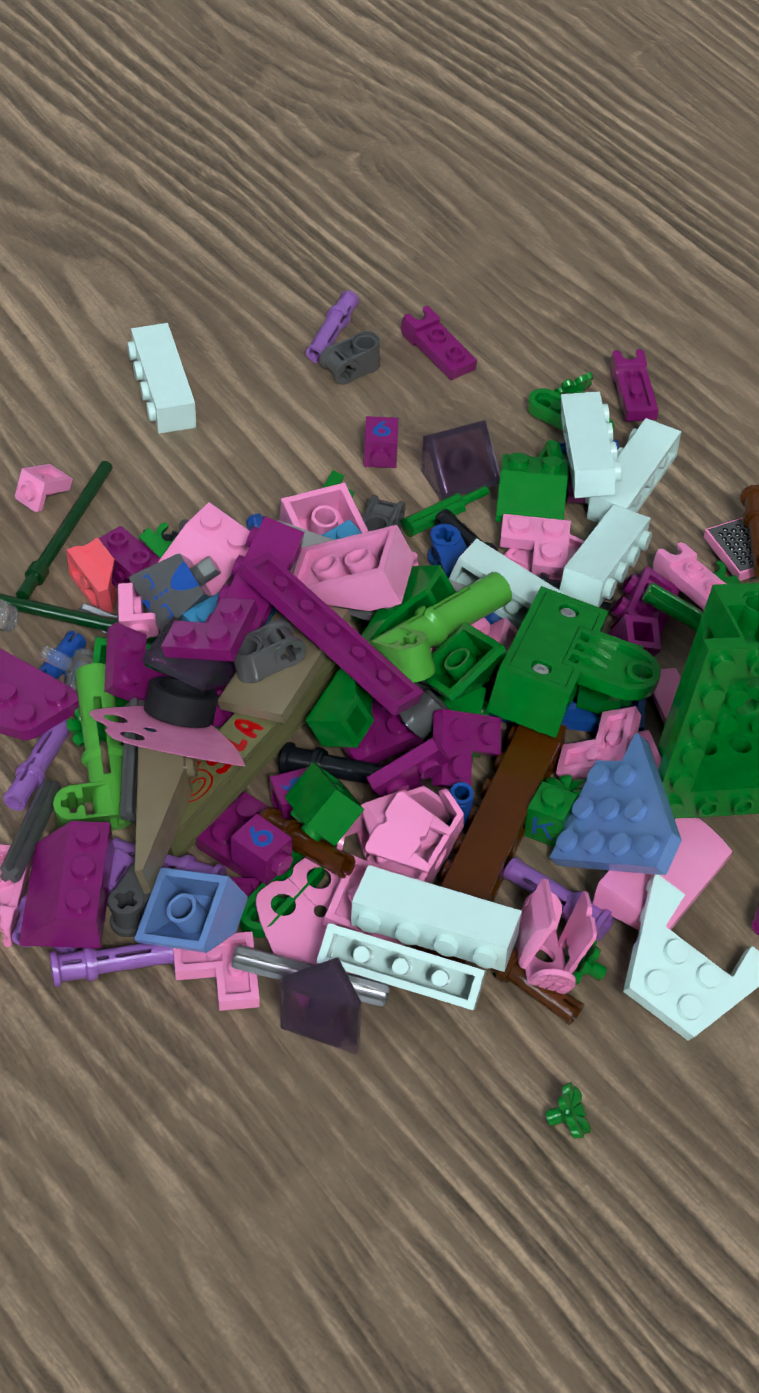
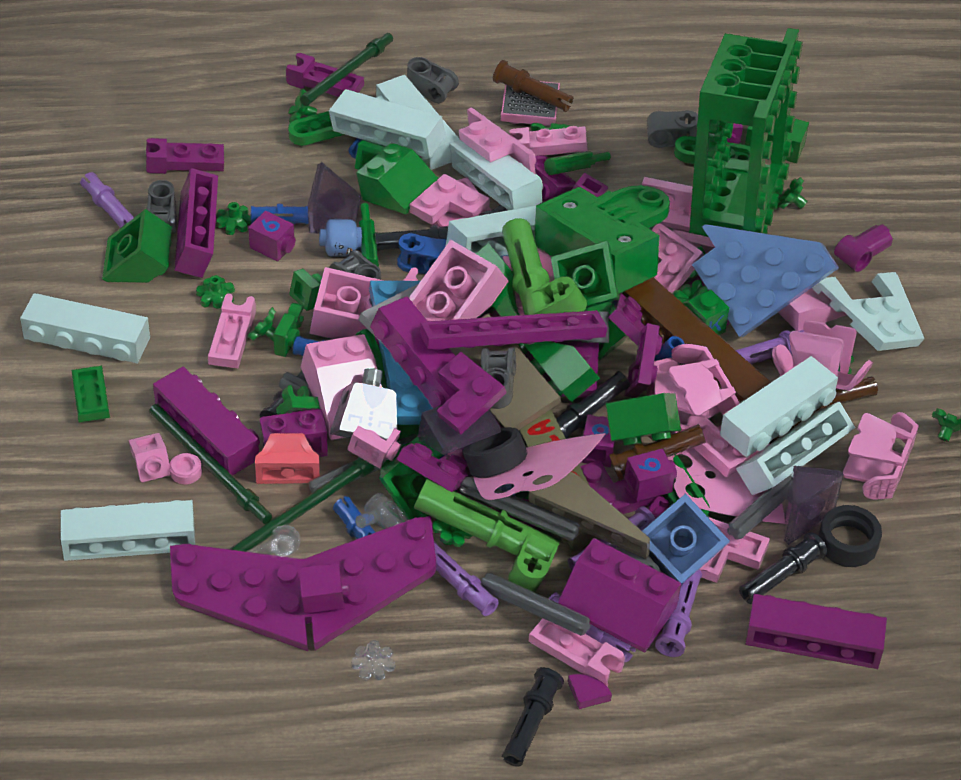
camera: 60 degrees left, 0 degrees up
(48, 517) = (185, 468): none -> bright pink tile
(89, 417) = (90, 393): none -> green plate
(110, 495) = (207, 419): none -> magenta brick
(156, 1095) = (816, 631): none -> magenta brick
(237, 471) = (232, 332): none -> bright pink plate
(246, 1035) = (793, 561): none -> black pin
(260, 489) = (264, 327): none -> green plant
(263, 502) = (288, 330): none -> green plate
(283, 440) = (214, 291): none -> green plant
(286, 367) = (138, 250): none -> green slope
(321, 1048) = (853, 517): none -> black tyre
(347, 383) = (196, 223): none -> magenta brick
(391, 408) = (234, 217): none -> green plant
(410, 430) = (300, 214): none -> blue pin
(420, 488) = (340, 237): none -> medium blue head
(457, 1056) = (872, 454): none -> bright pink piece
(639, 530) = (493, 142): none -> bright pink bracket
(705, 457) = (429, 79): none -> dark grey piece
(712, 402) = (373, 49): none -> dark green bar

